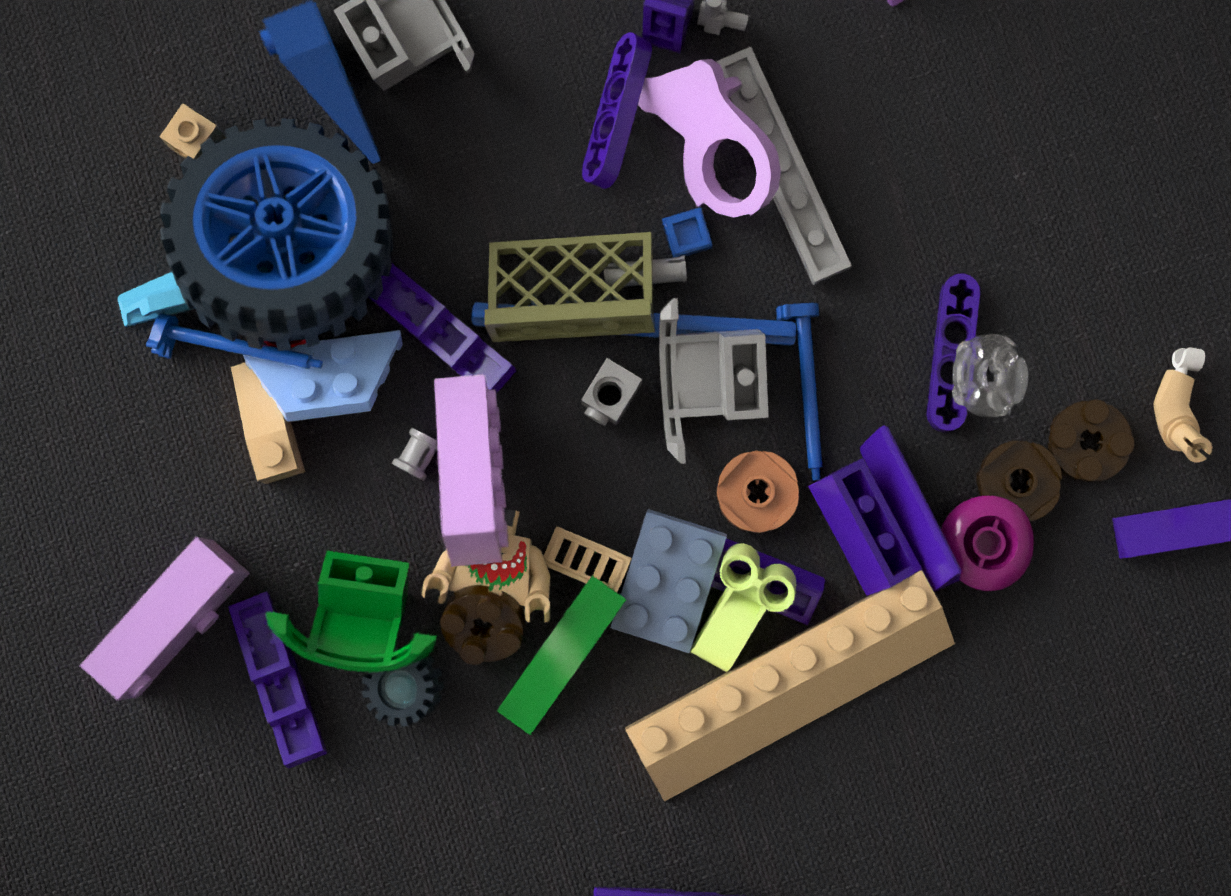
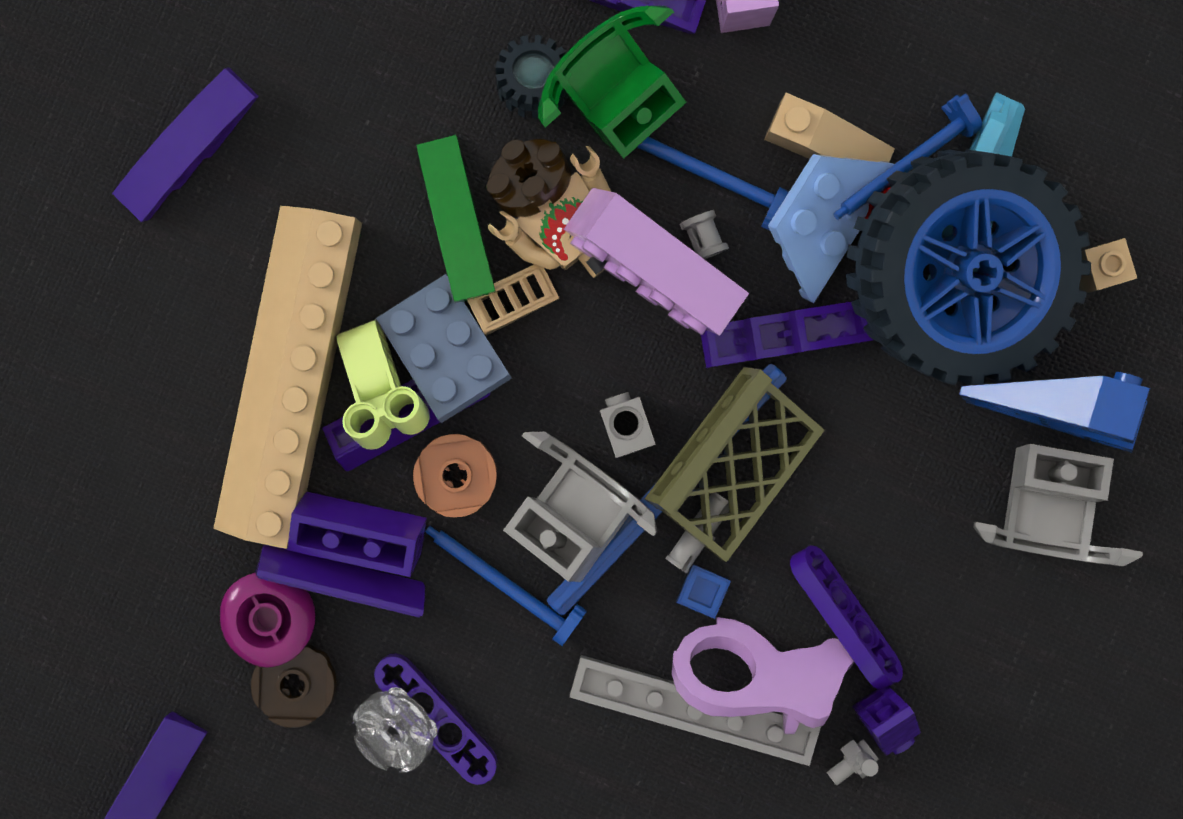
camera: 130 degrees right, 5 degrees up
(348, 424) = (717, 176): none -> blue piece
(1097, 418) = (296, 784): dark brown plate -> none

